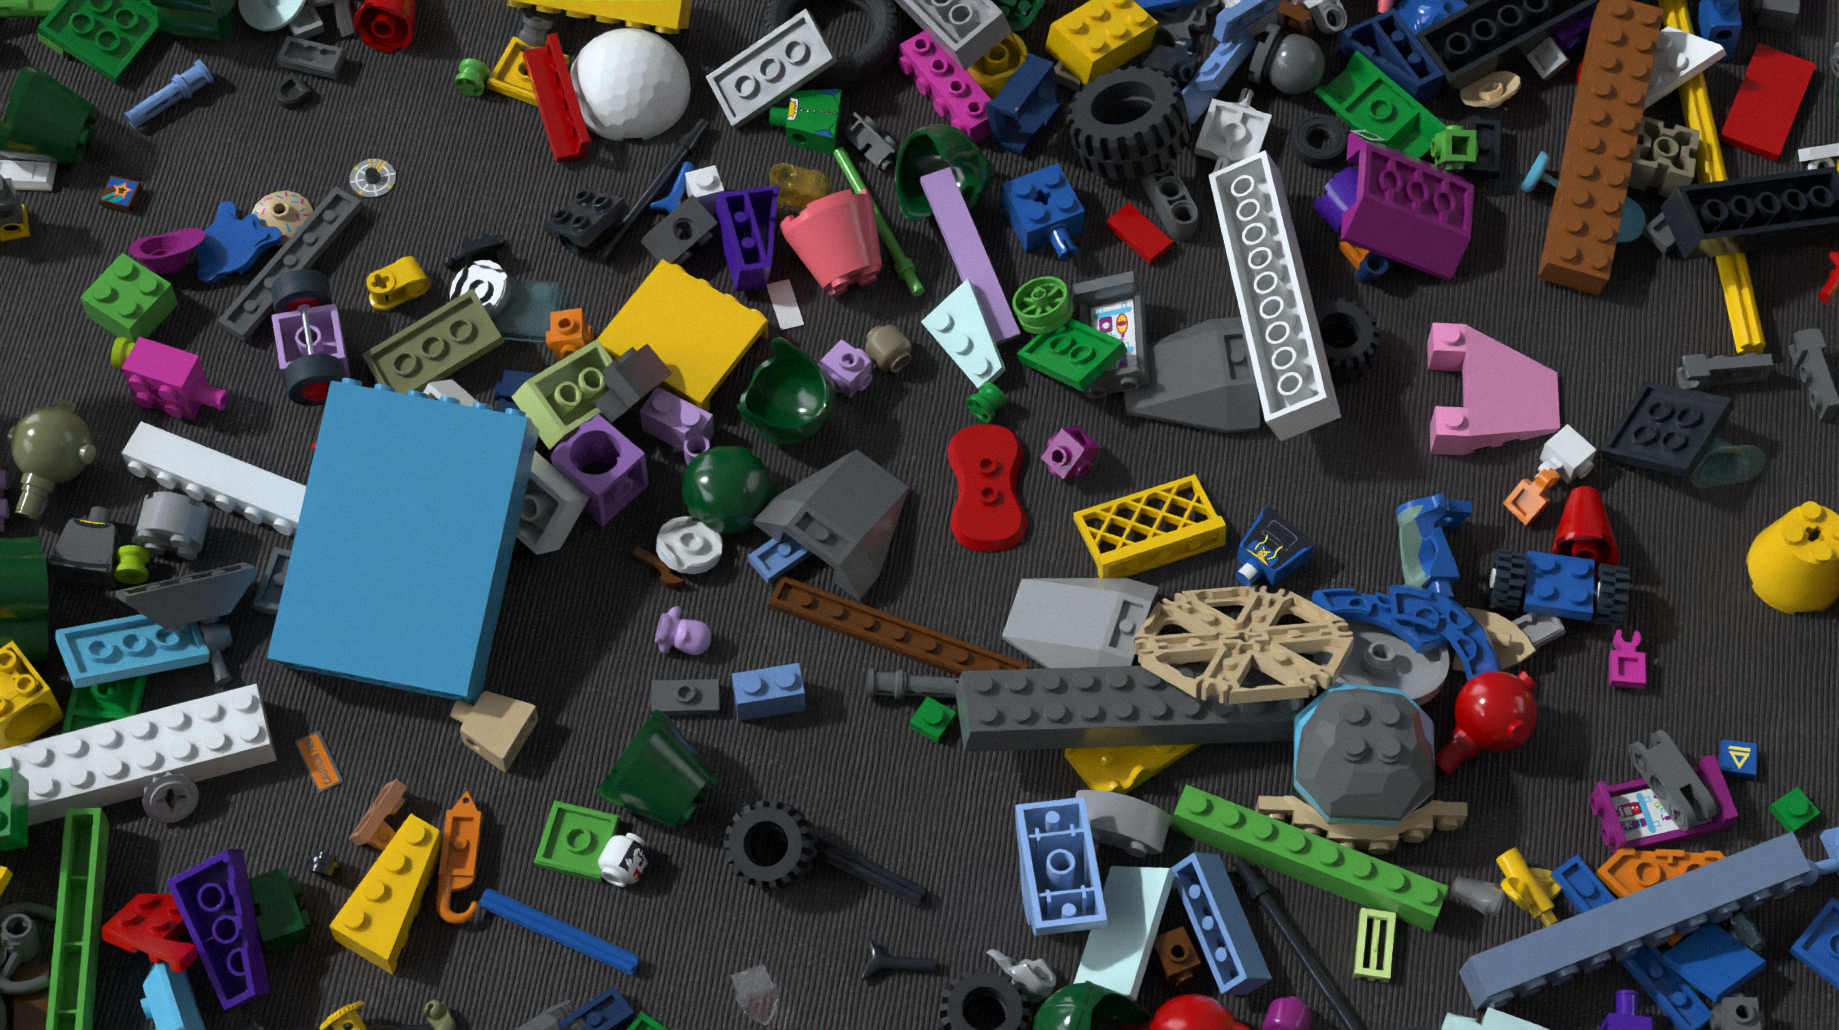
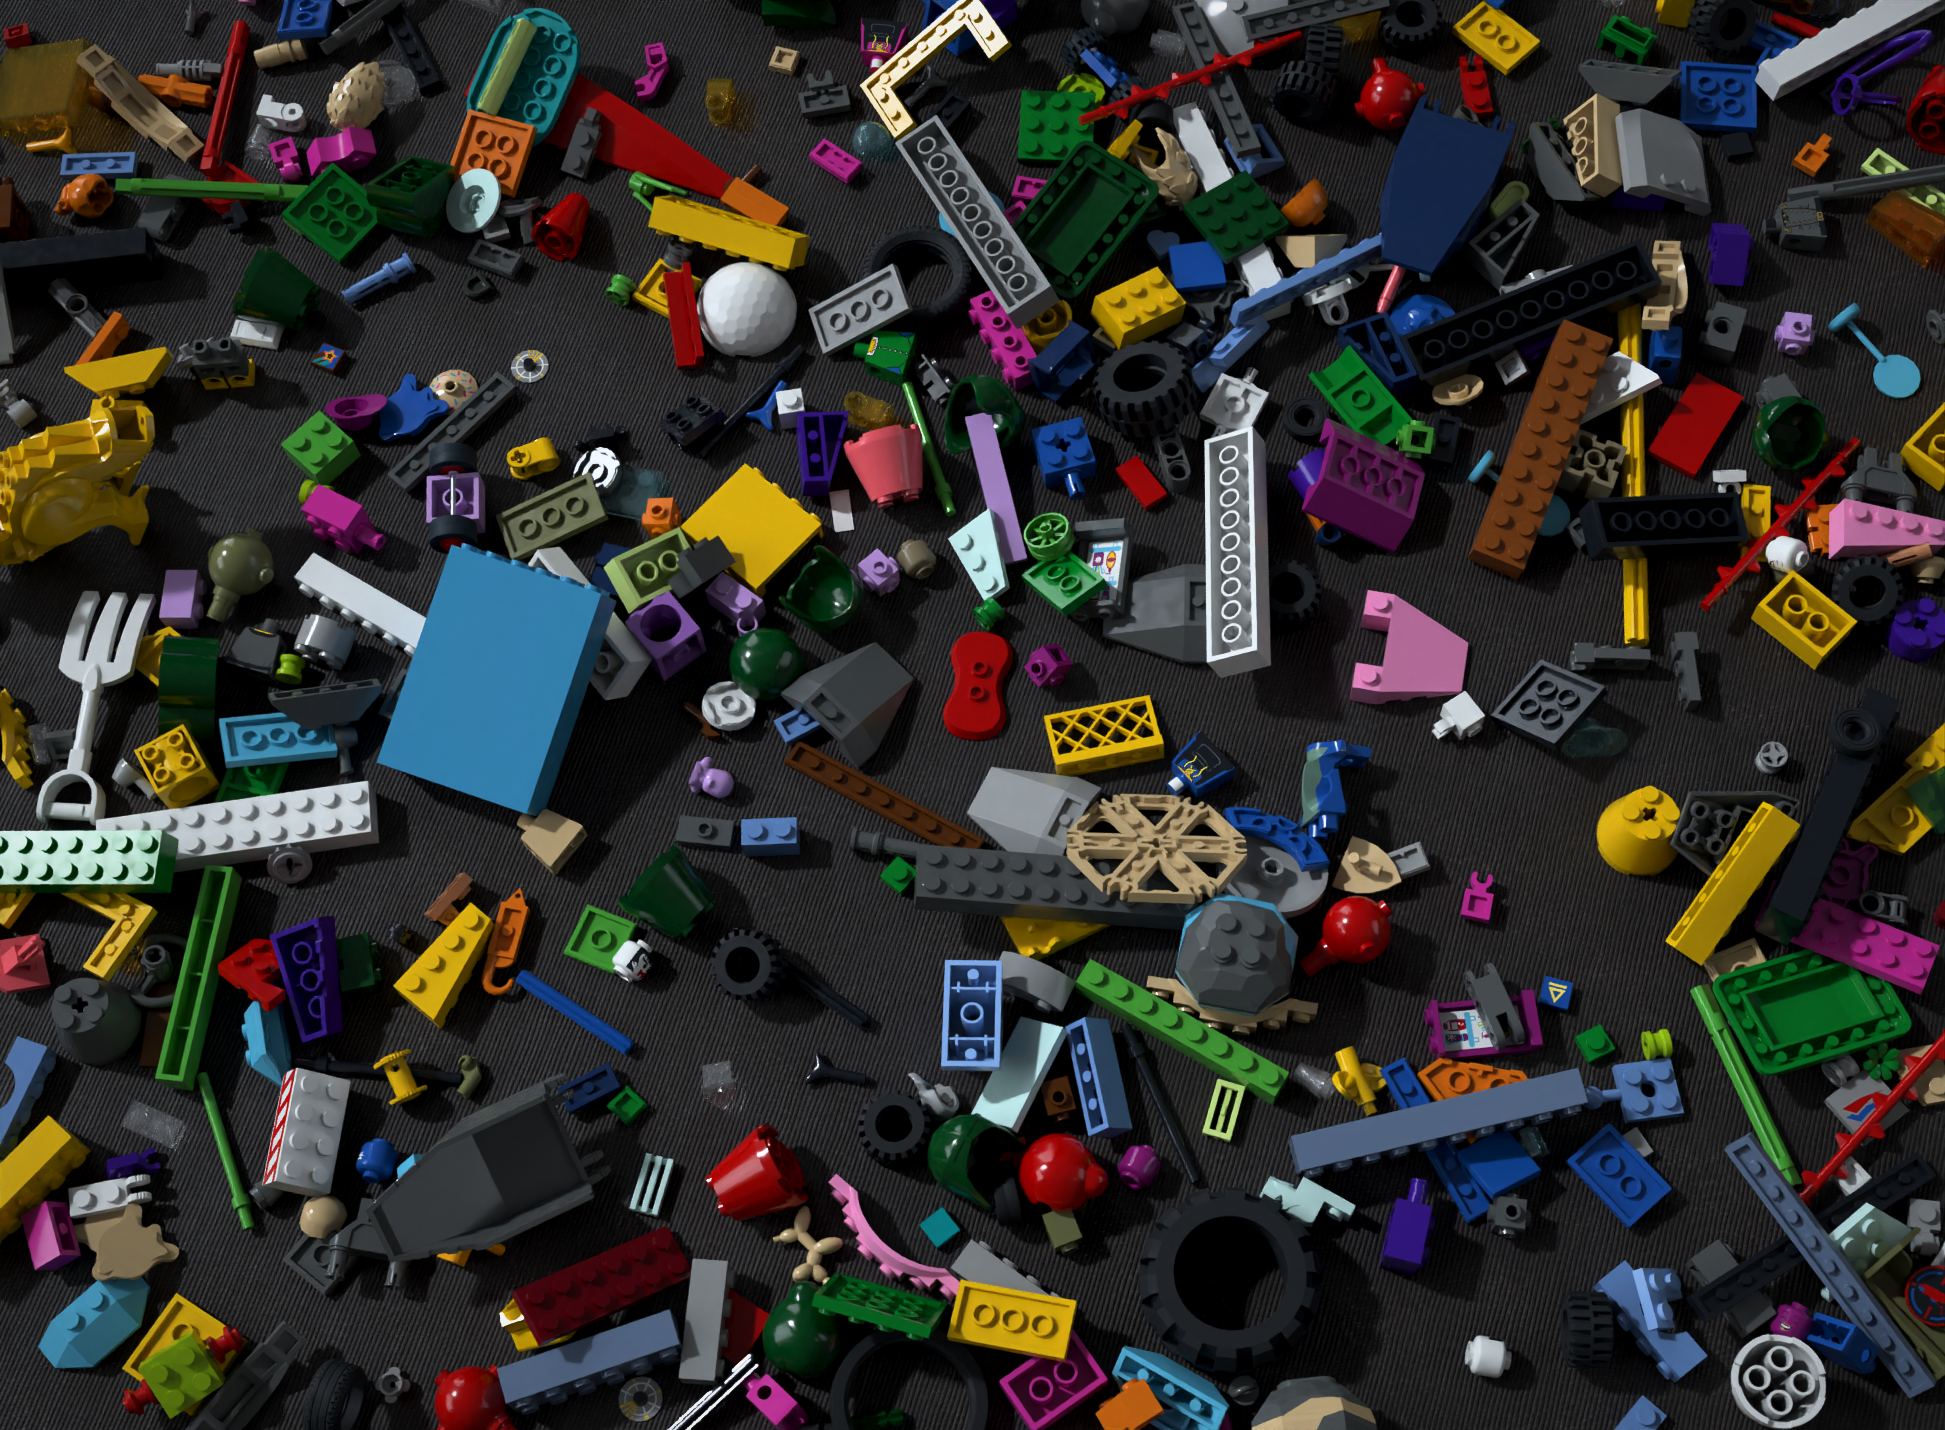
camera: 15 degrees right, 5 degrees up
(318, 761) = (411, 847): sticker -> none
(690, 218) = (773, 429): dark grey brick -> none
(1289, 62) = (1292, 349): dark grey tile -> none
(1295, 19) = (1301, 323): reddish brown plate -> none
(1368, 135) = (1343, 421): white sticker -> none
(1450, 620) = (1333, 849): blue tile -> none
(1529, 498) = (1422, 750): orange plate -> none
(1559, 586) = (1431, 829): plate -> none
(1586, 529) = (1462, 787): red cone -> none

